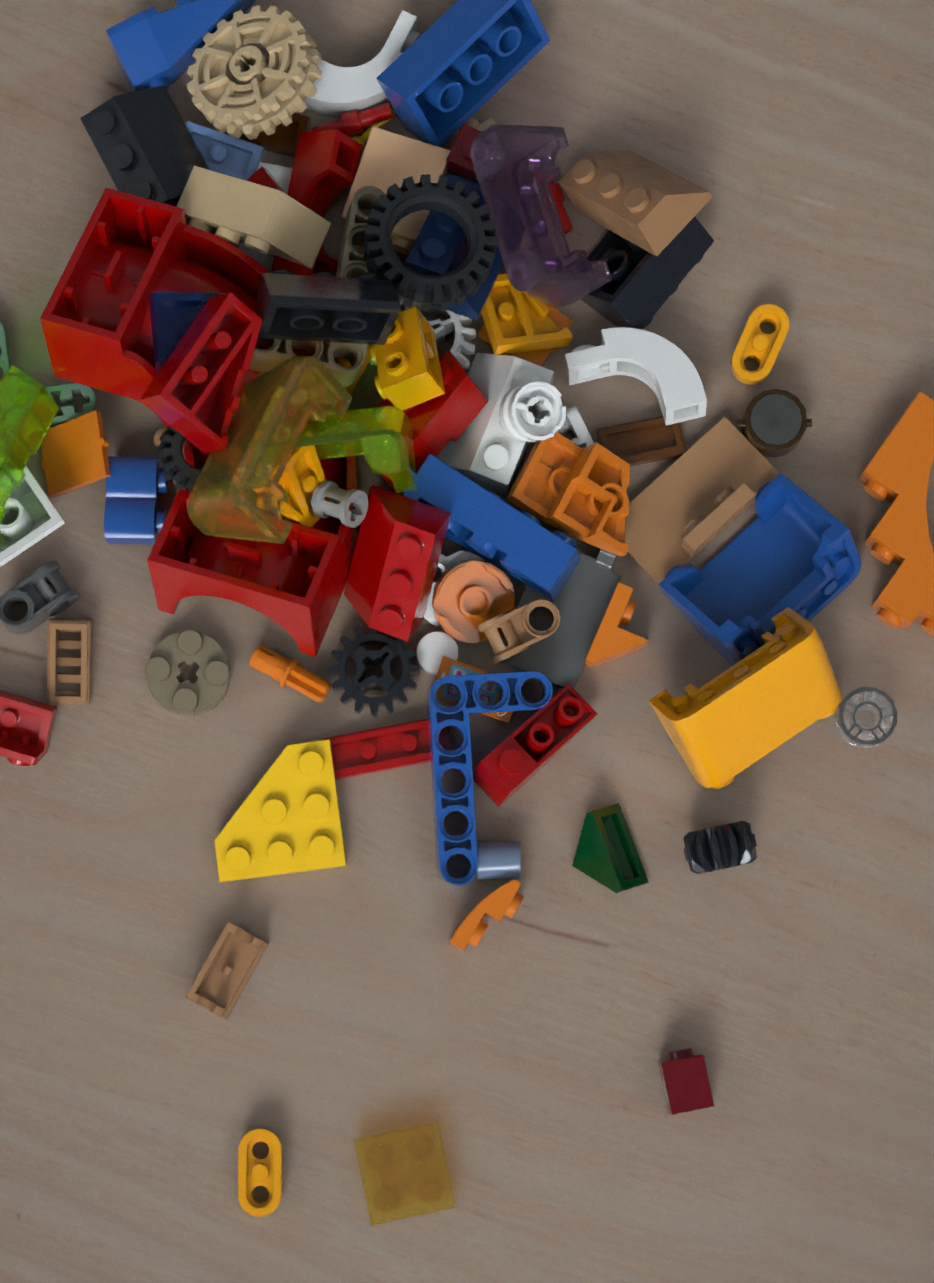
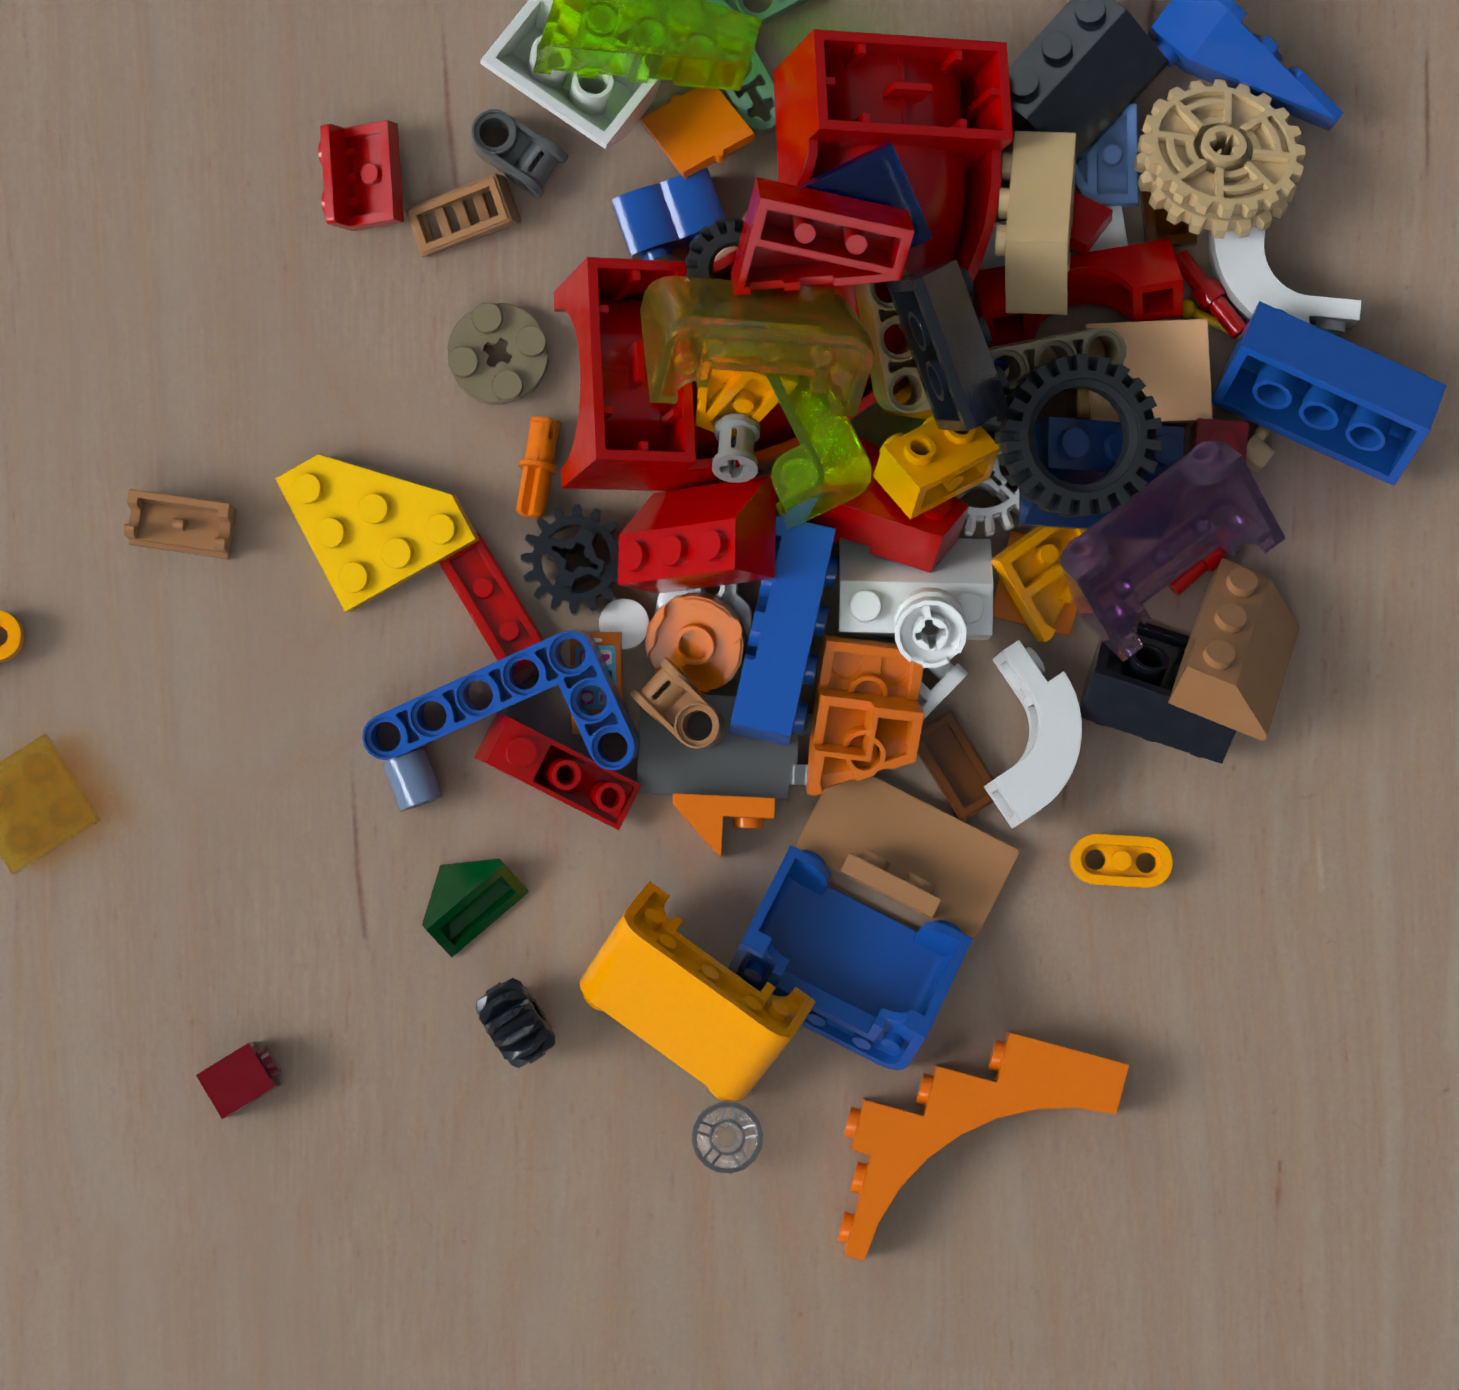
camera: 65 degrees right, 5 degrees up
(496, 905) = (365, 799): orange slope -> none
(774, 422) = (1033, 910): piece -> none

